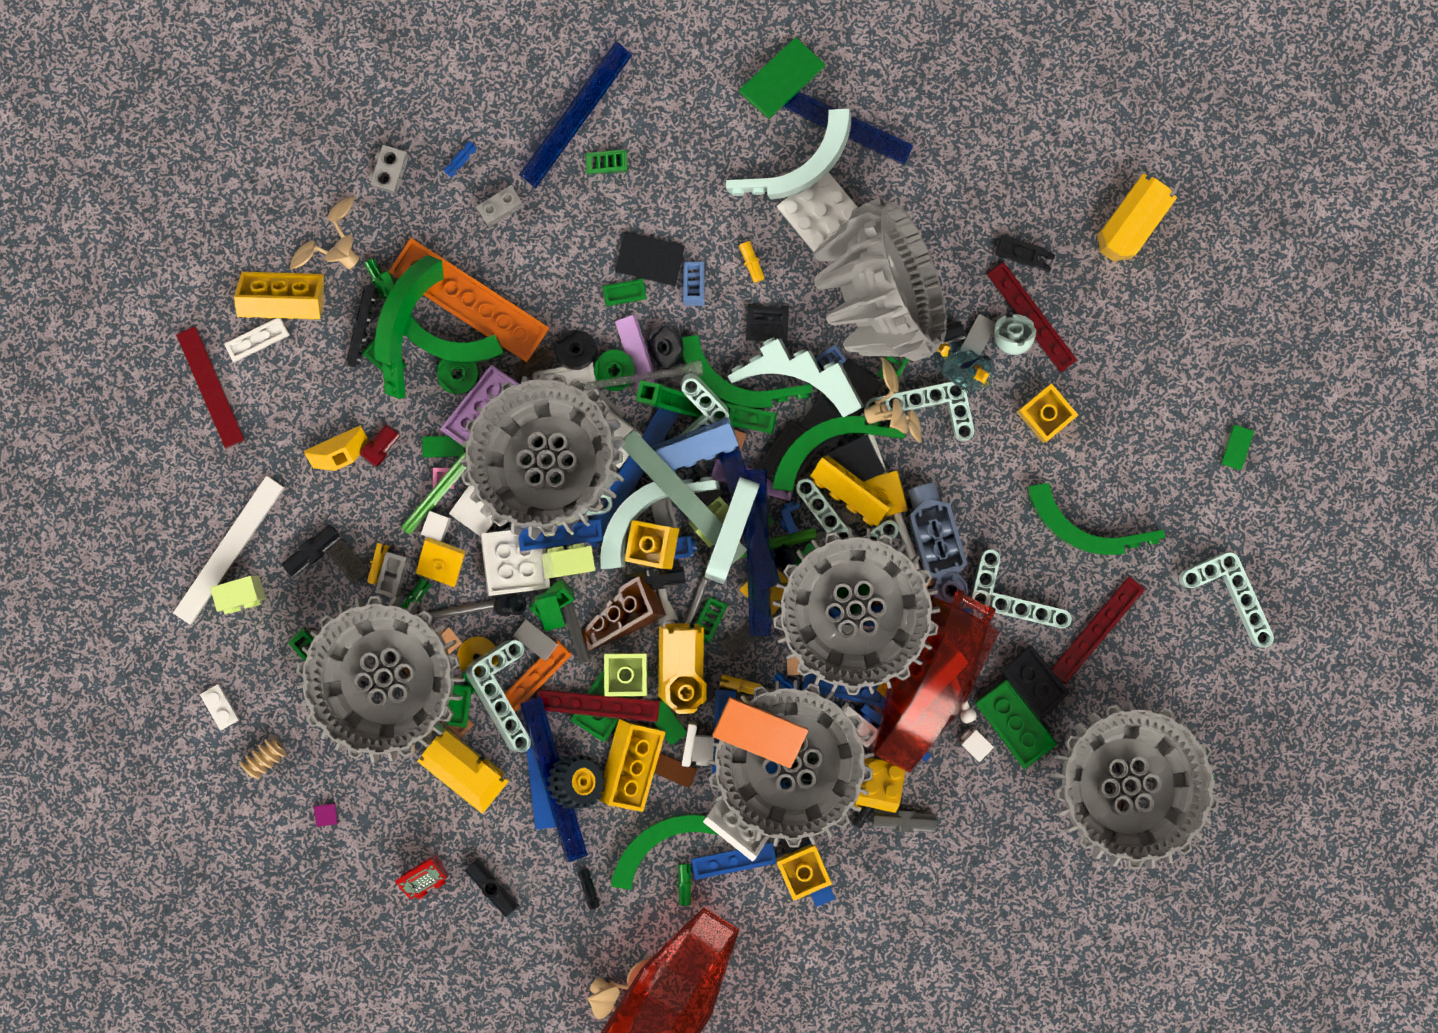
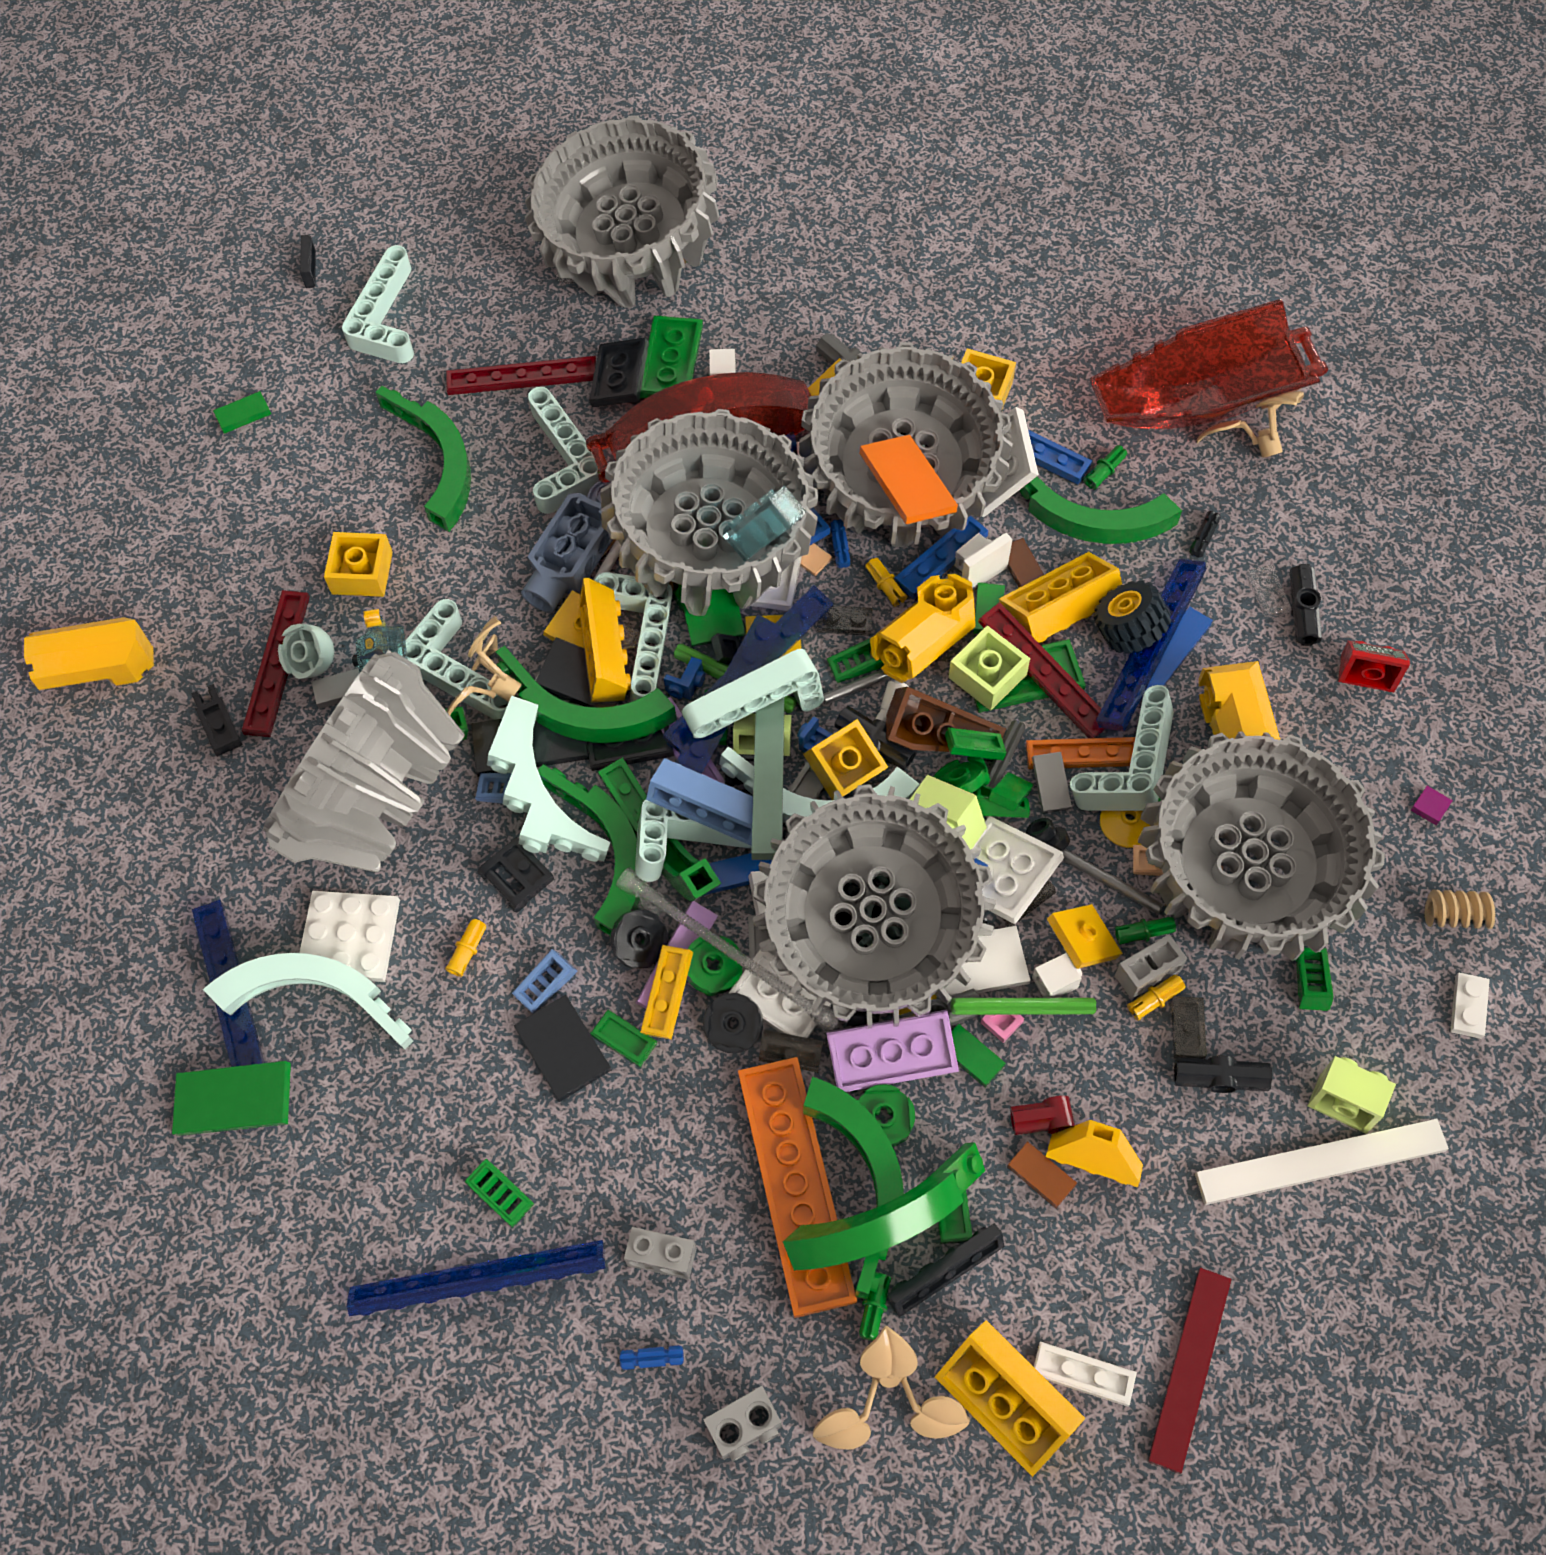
camera: 130 degrees left, 25 degrees down
(355, 416) = (1042, 1175): none -> dark orange tile
(574, 590) = (966, 775): none -> green plate
(592, 621) = (975, 743): none -> green tile
(621, 331) = (666, 992): none -> yellow tile
(807, 622) = (763, 522): none -> clear light blue brick
(1319, 585) = (308, 261): none -> black tile

